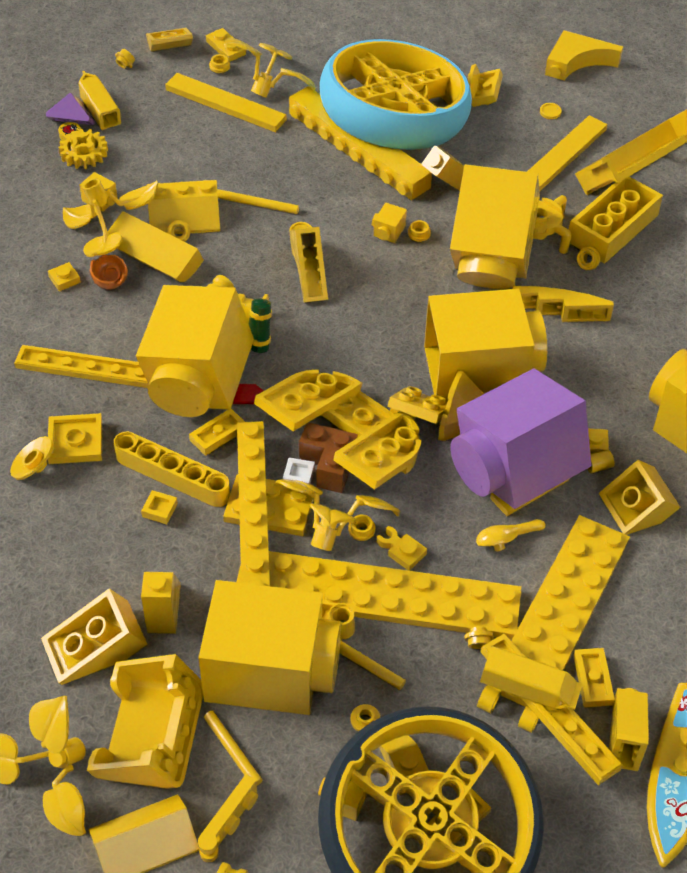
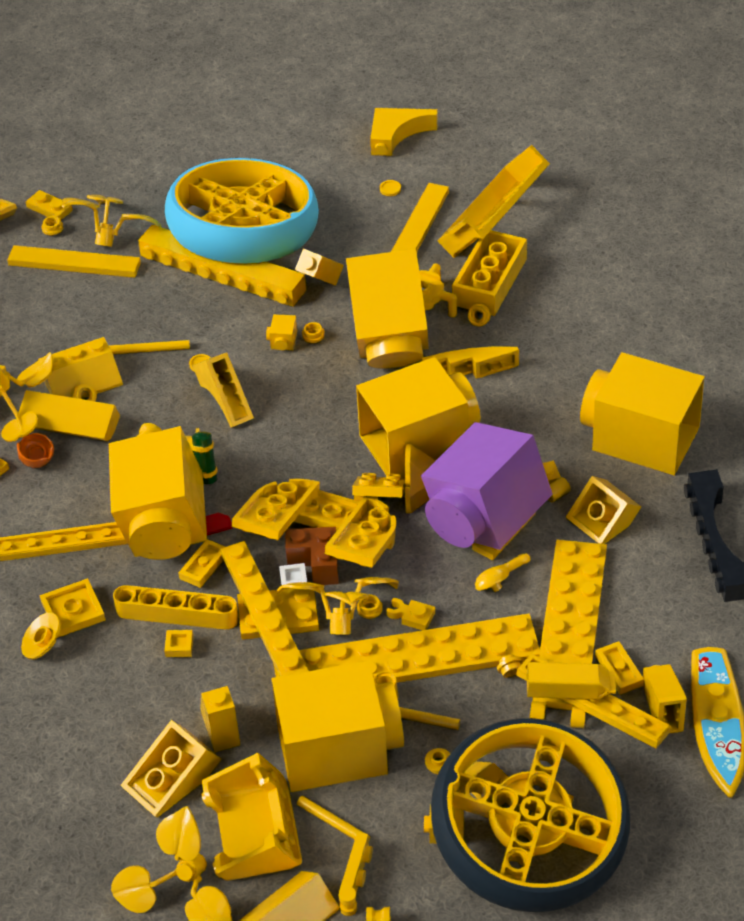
camera: 15 degrees left, 5 degrees down
(484, 85) = (320, 179): yellow bracket -> none

